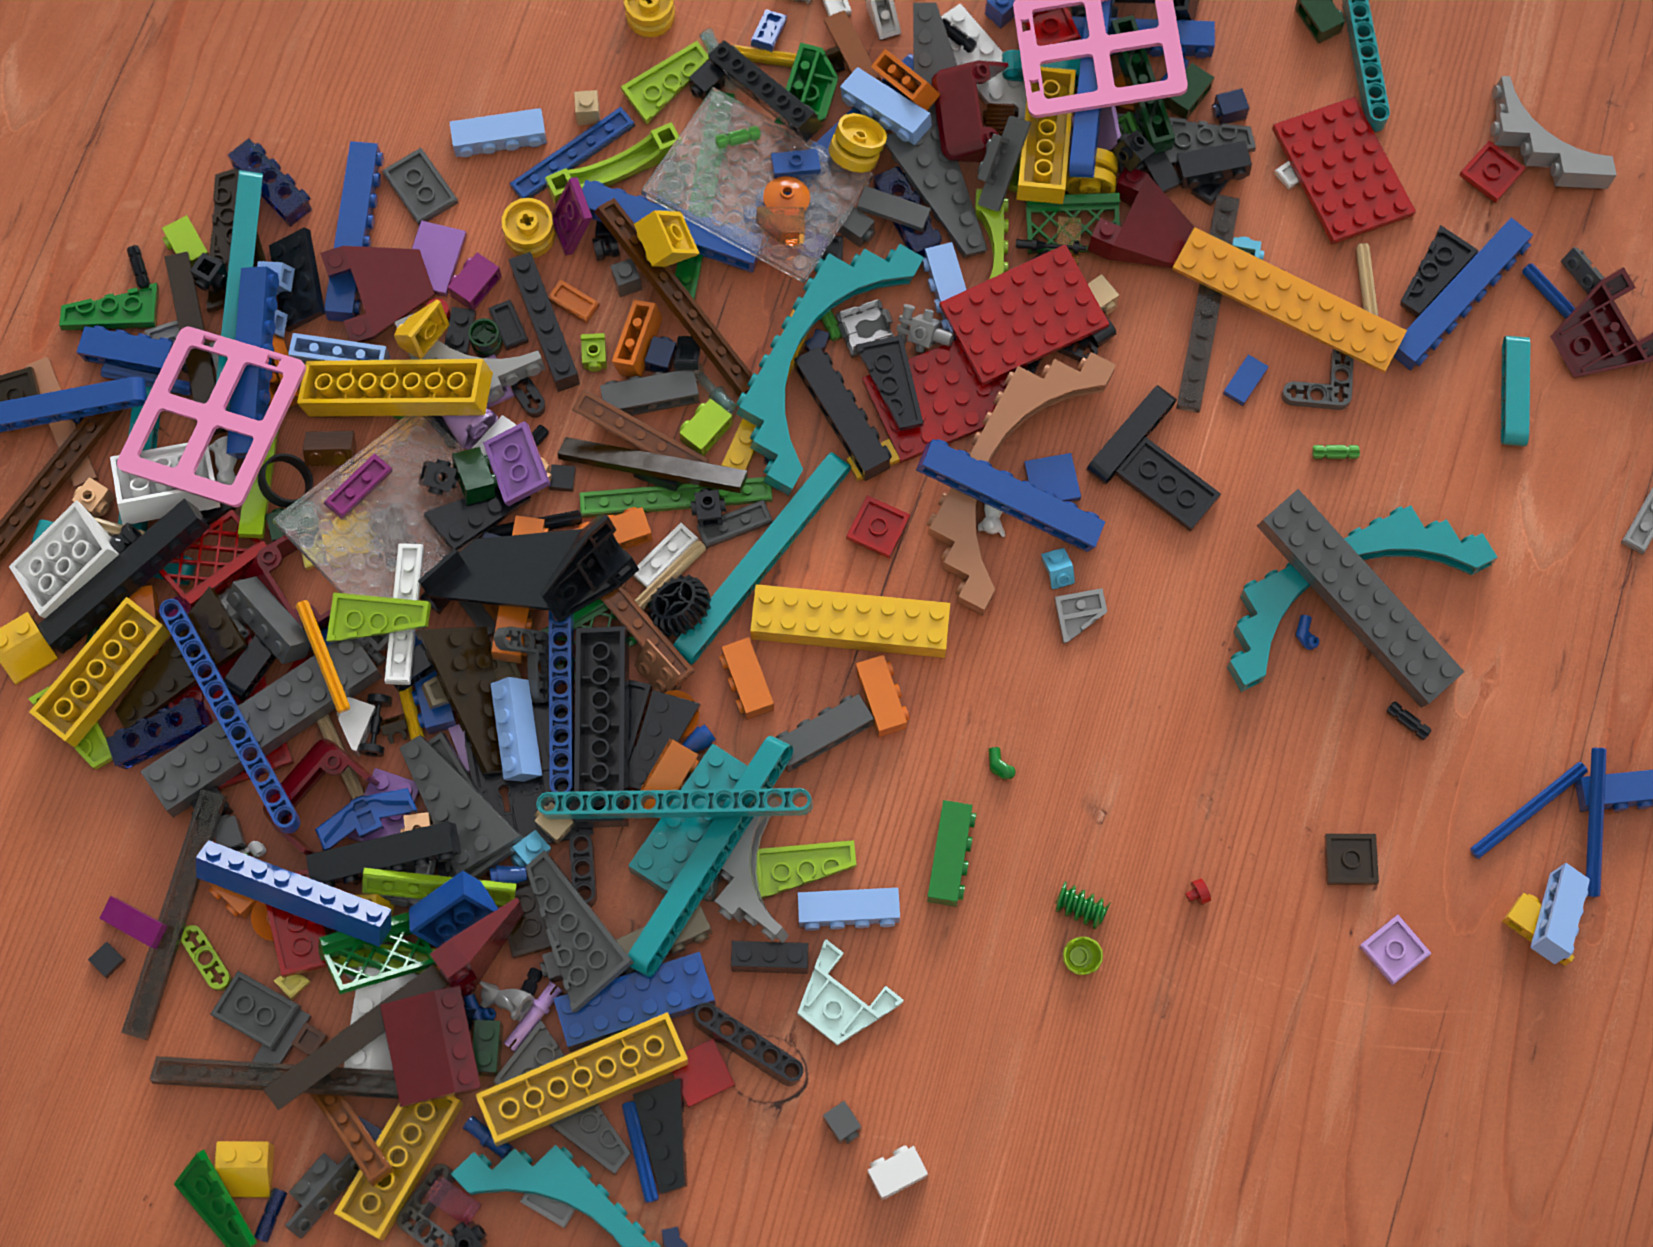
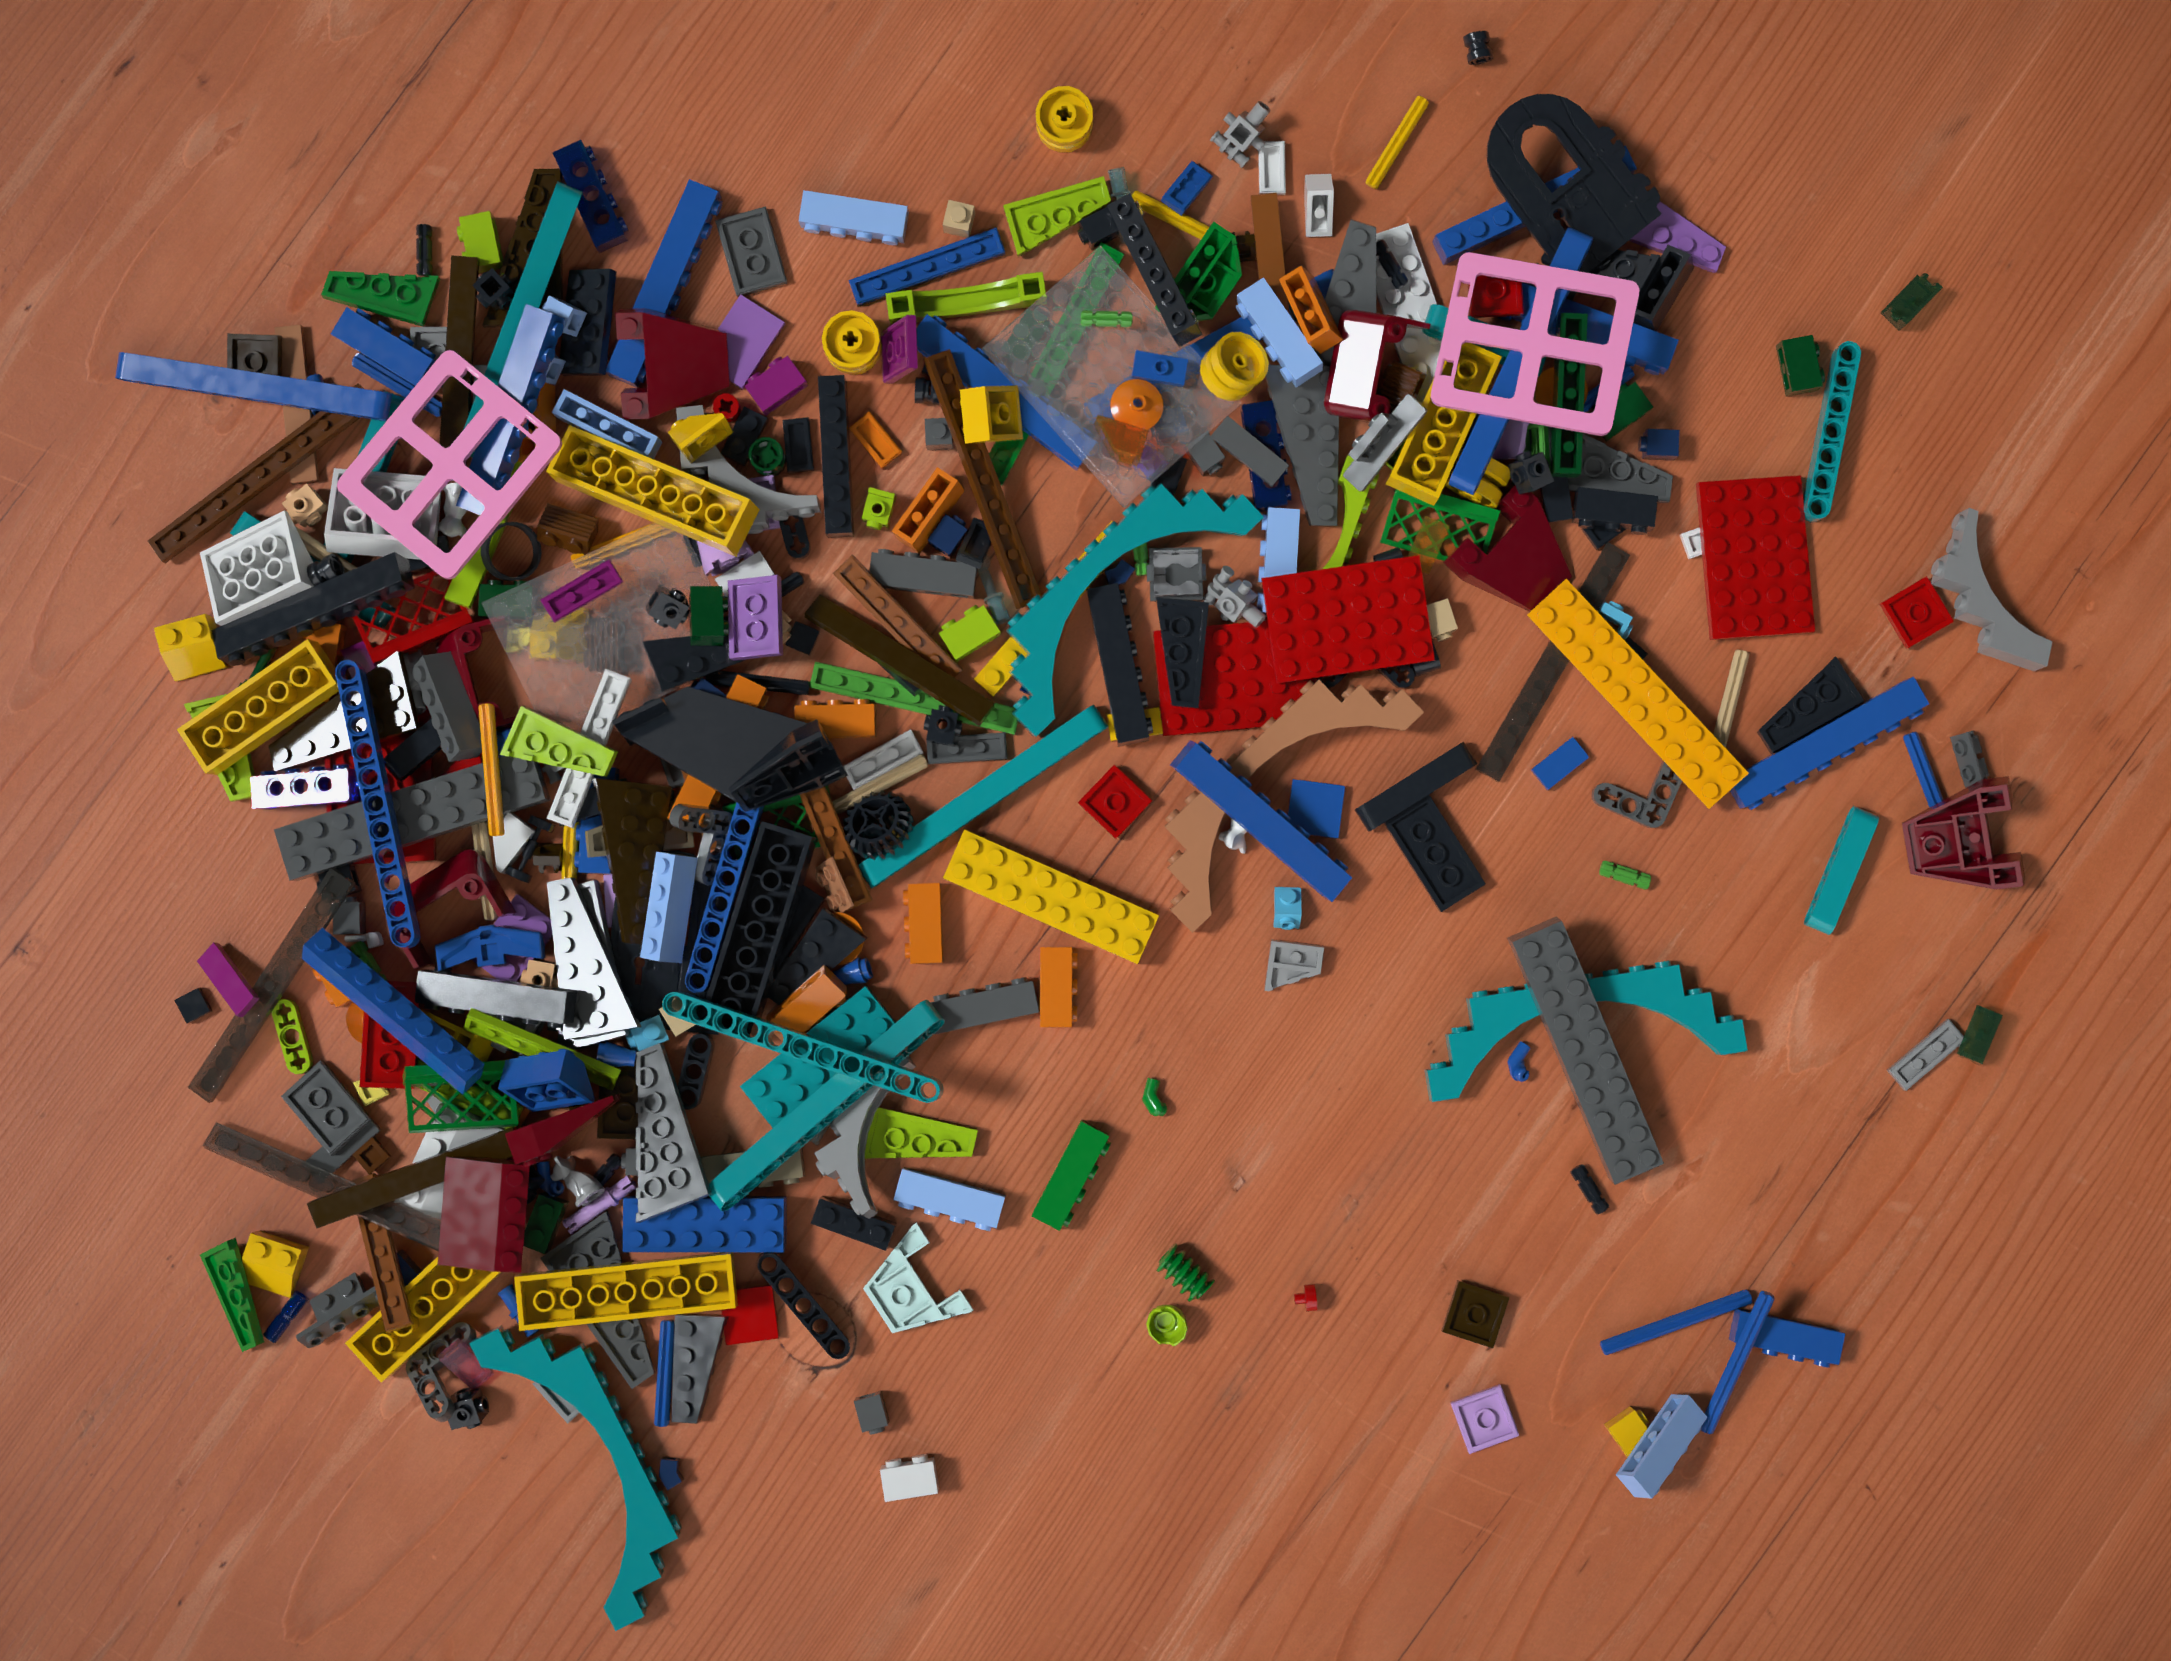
camera: 15 degrees right, 15 degrees up
(1036, 245) = (1390, 539): black piece -> none

